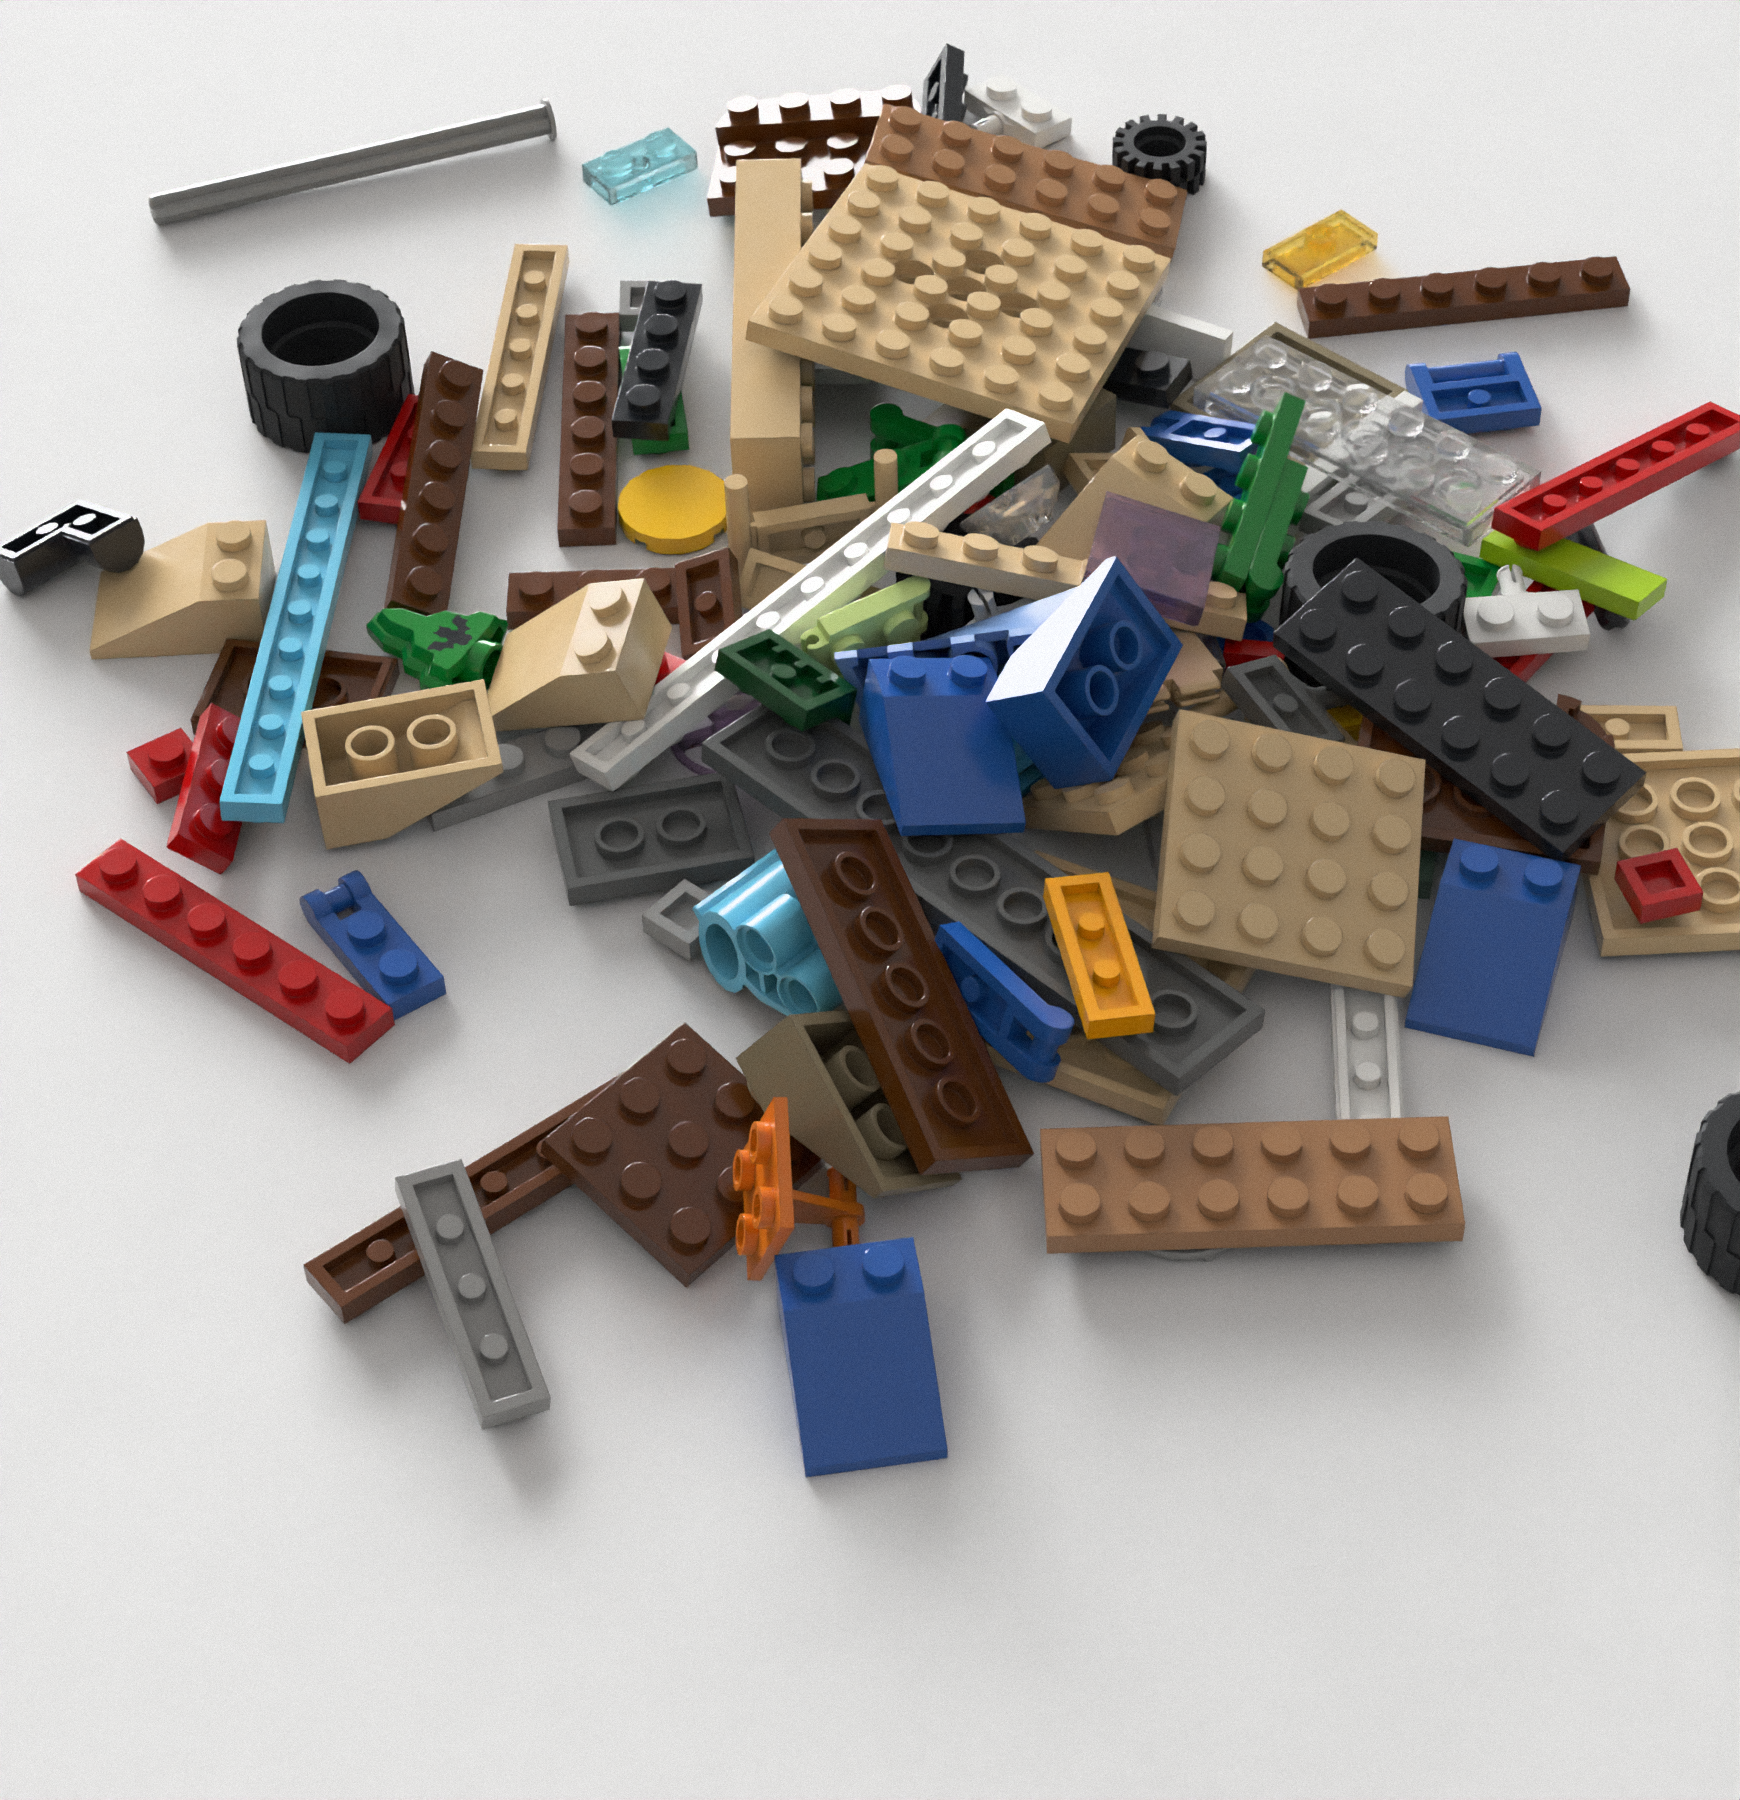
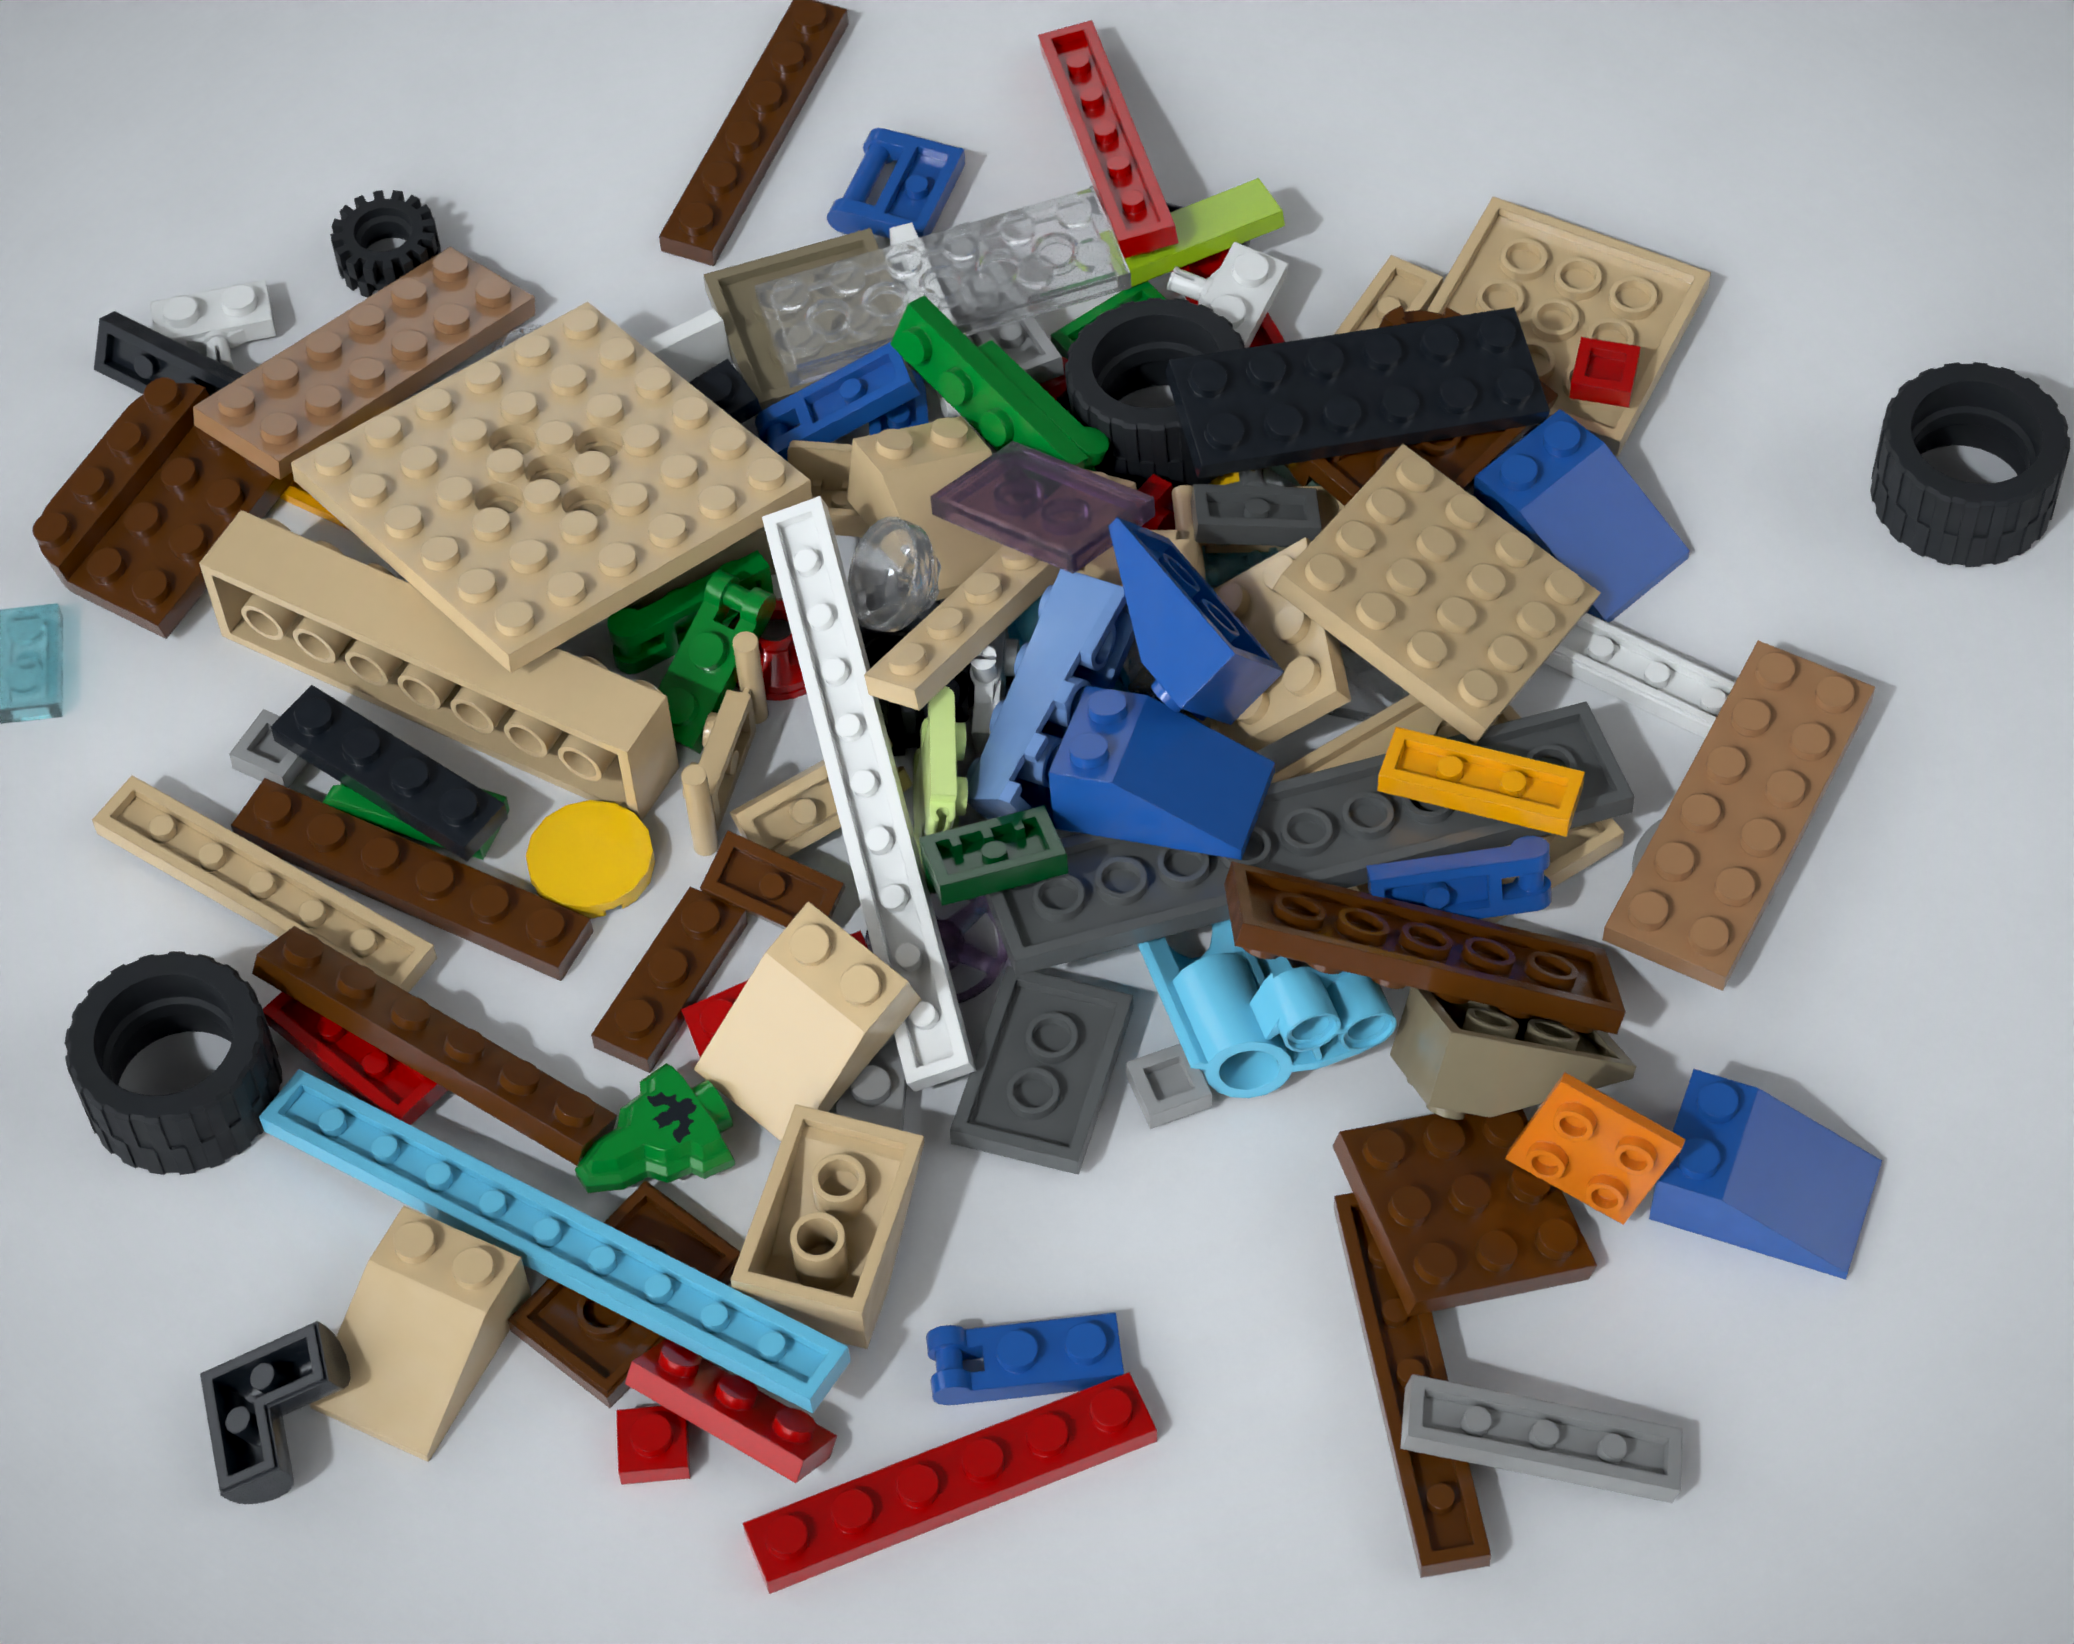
camera: 60 degrees left, 10 degrees up
(1319, 250) = (608, 194): clear yellow plate -> none

